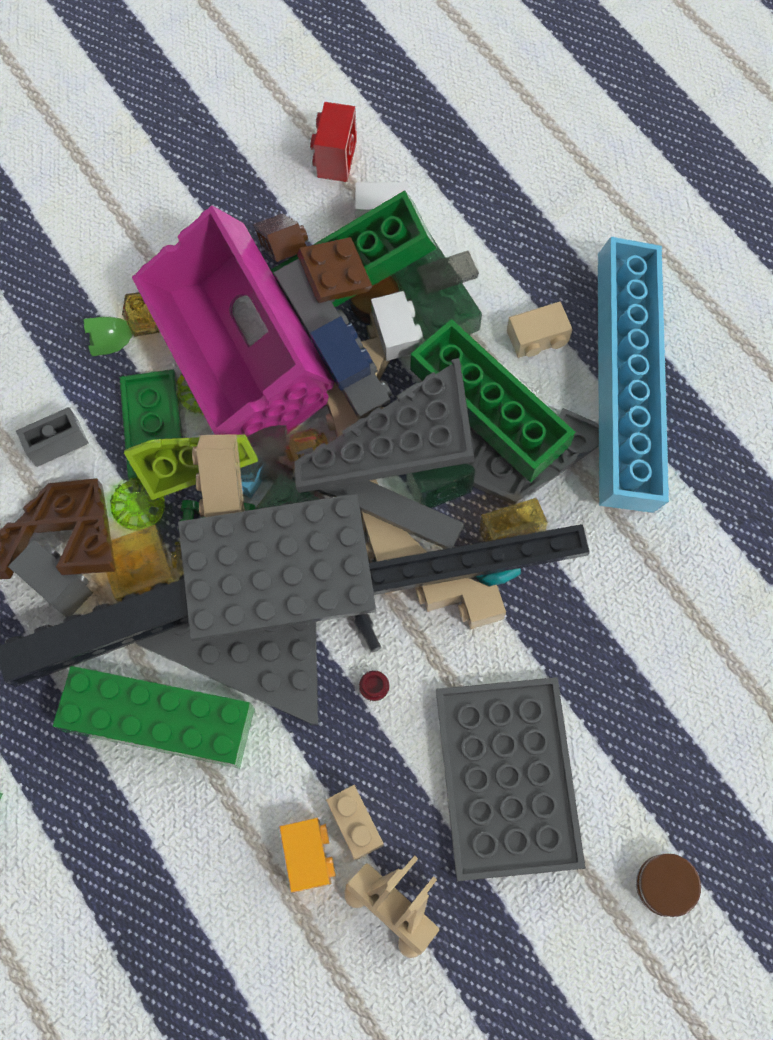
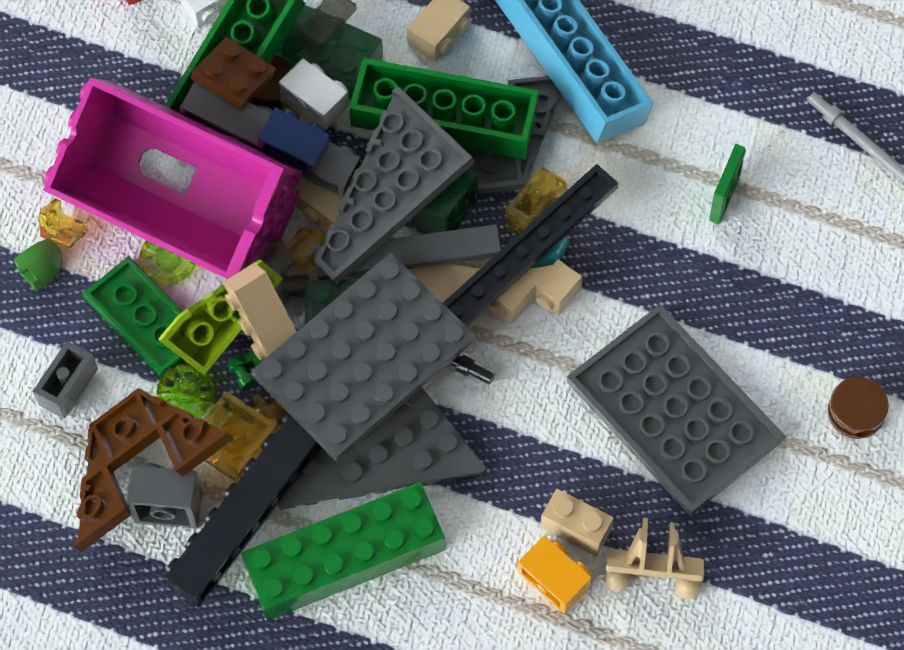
camera: 35 degrees left, 5 degrees down
(280, 236) = (151, 74): reddish brown brick -> none
(374, 685) = (511, 409): dark red plate -> none
(686, 610) = (727, 184): none -> green tile

